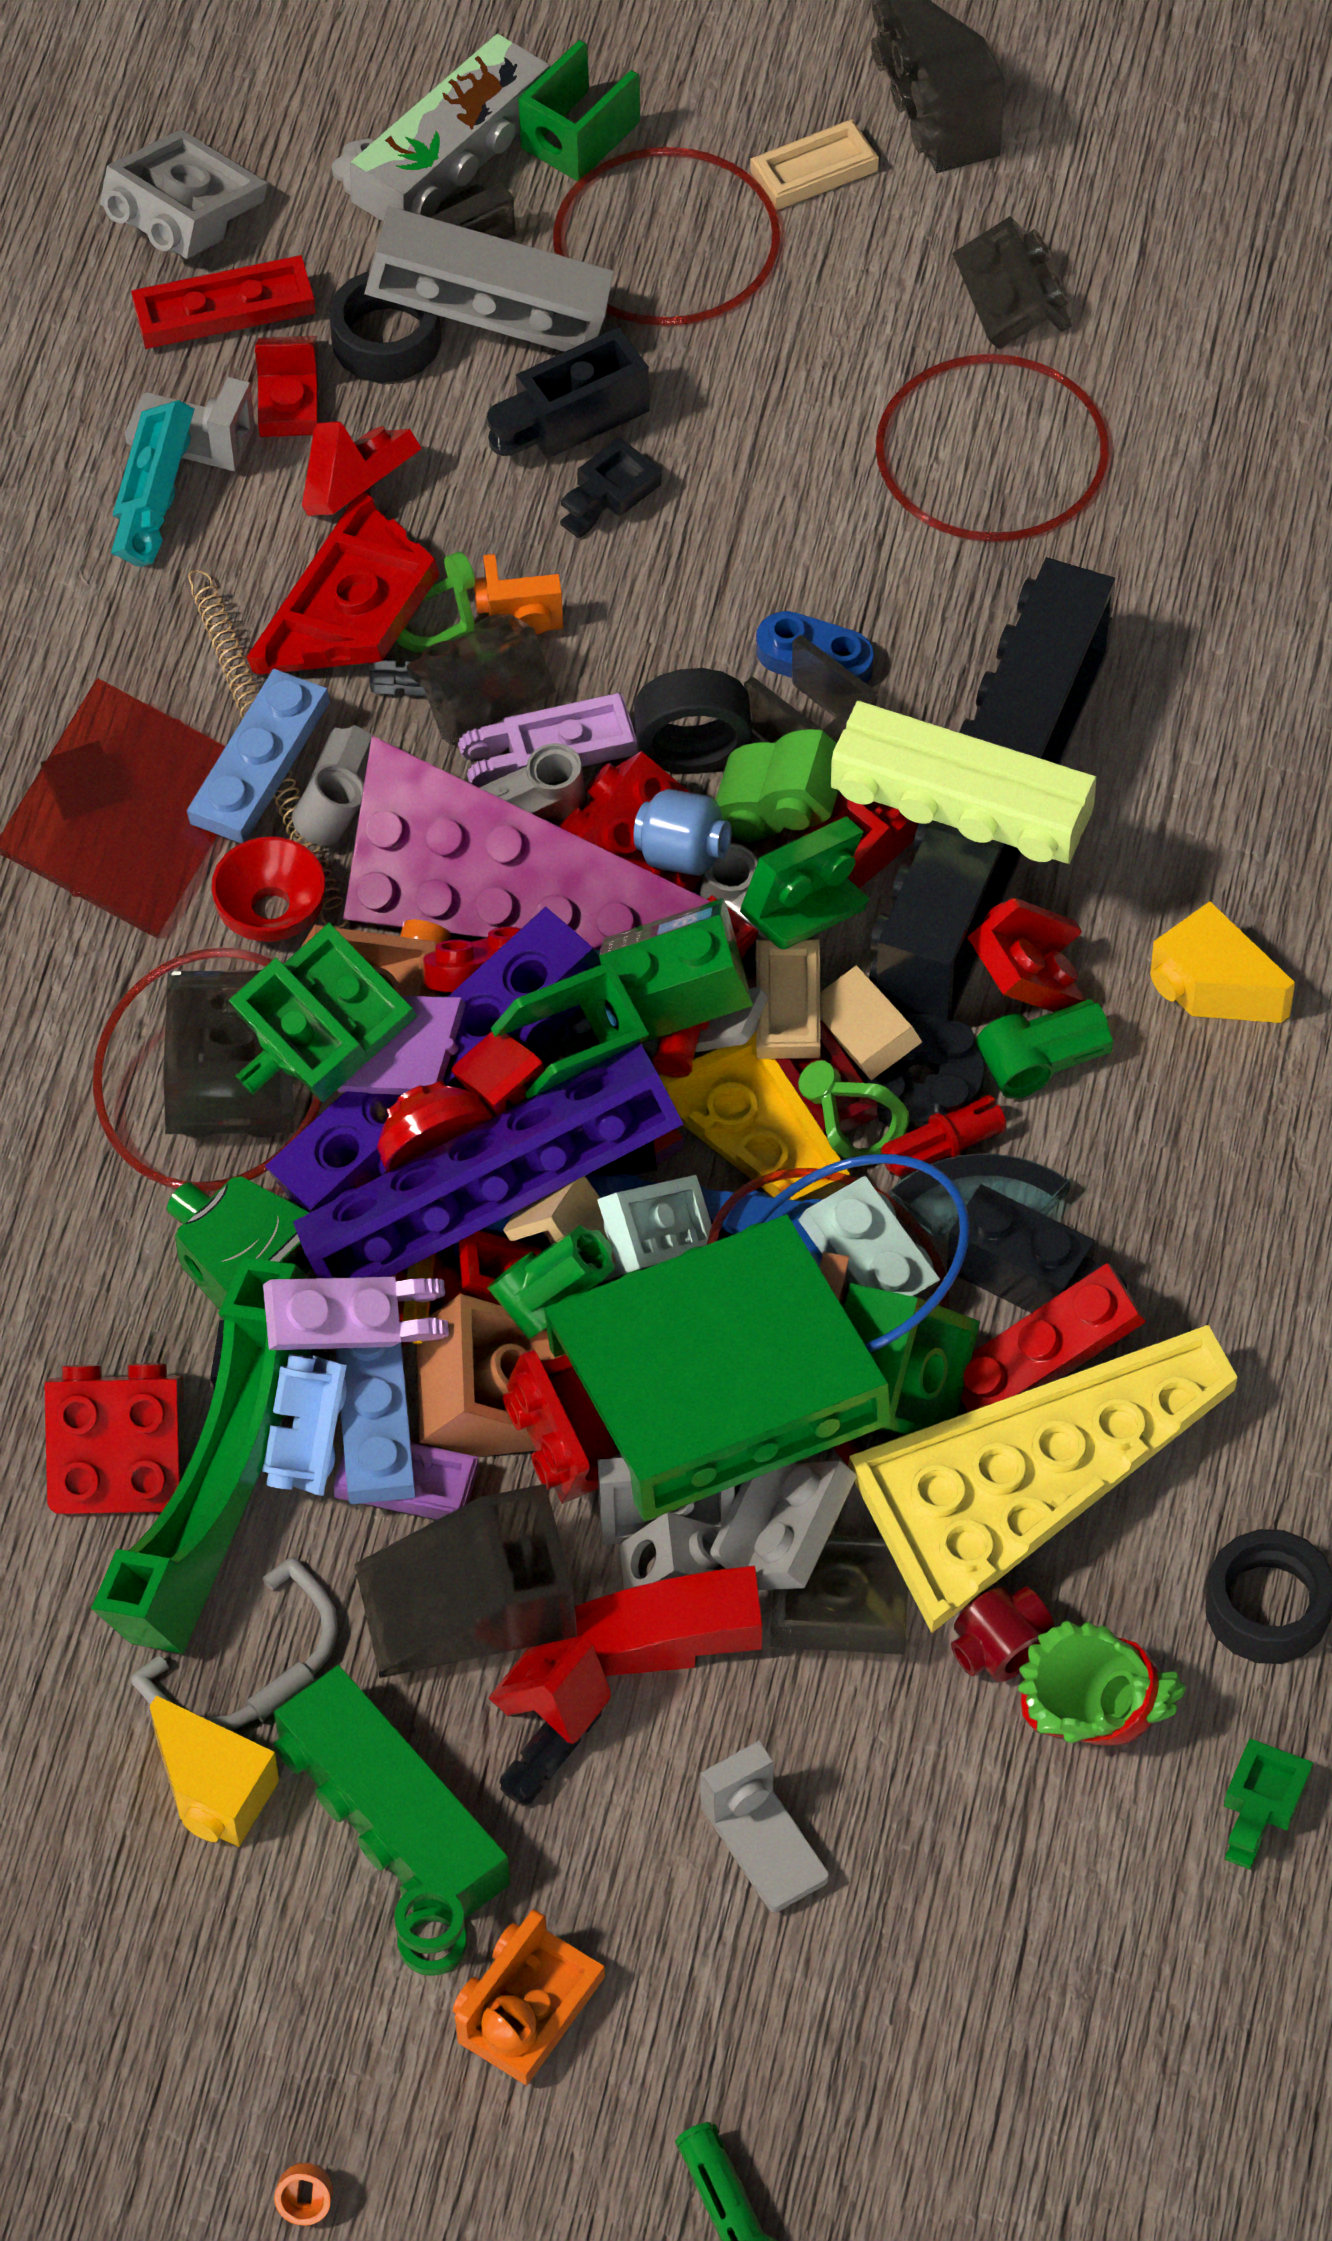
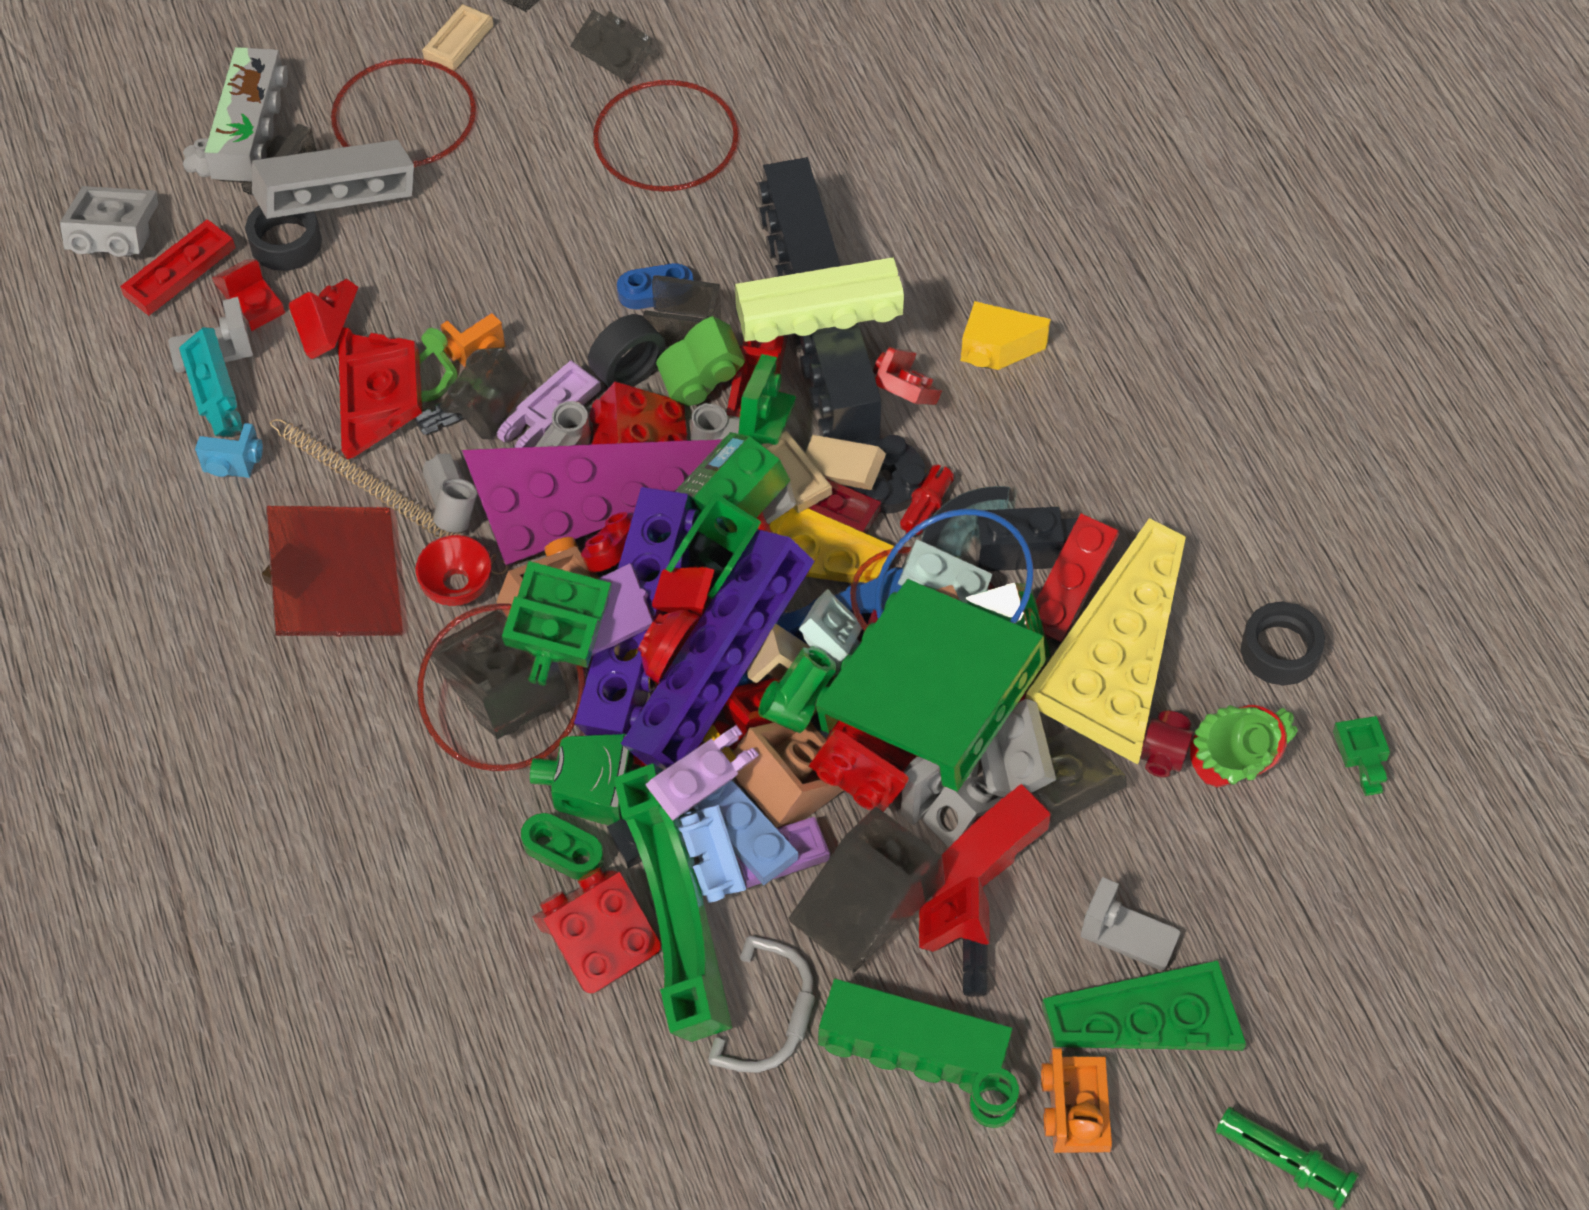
camera: 35 degrees left, 0 degrees up
(109, 593) = (230, 457): none -> dark azure bracket
(150, 1317) = (566, 845): none -> green plate
(213, 1773) = (799, 1086): yellow slope -> none
(258, 756) = (391, 501): medium blue plate -> none
(572, 397) = (425, 217): black brick -> none
(595, 134) = (323, 82): green piece -> none
(611, 479) = (477, 251): black plate -> none
(681, 832) = (674, 411): medium blue head -> none
(718, 1955) = (1157, 1011): none -> green wing
(821, 1084) = (847, 506): bright green piece -> none
(1027, 1052) = (938, 429): green piece -> none

